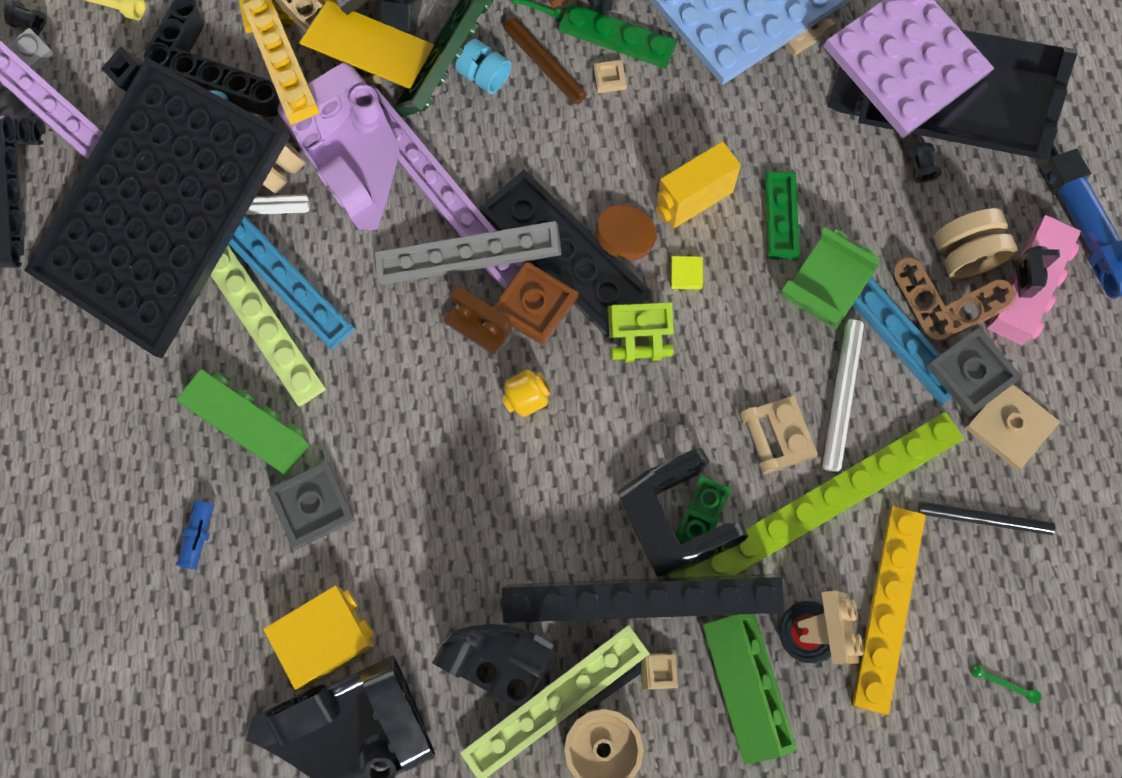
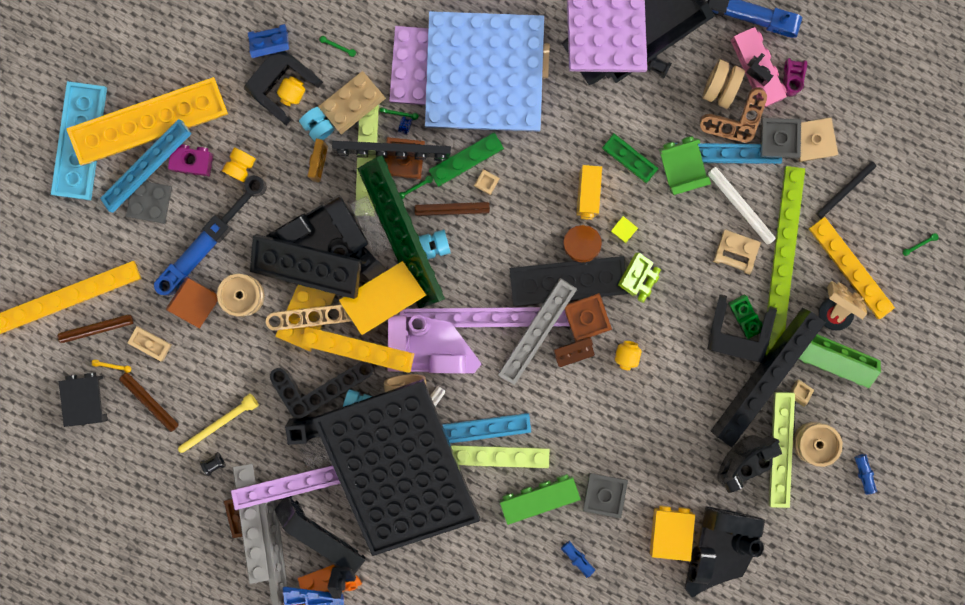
camera: 60 degrees left, 15 degrees up
(1067, 331) = (794, 73): none -> magenta piece

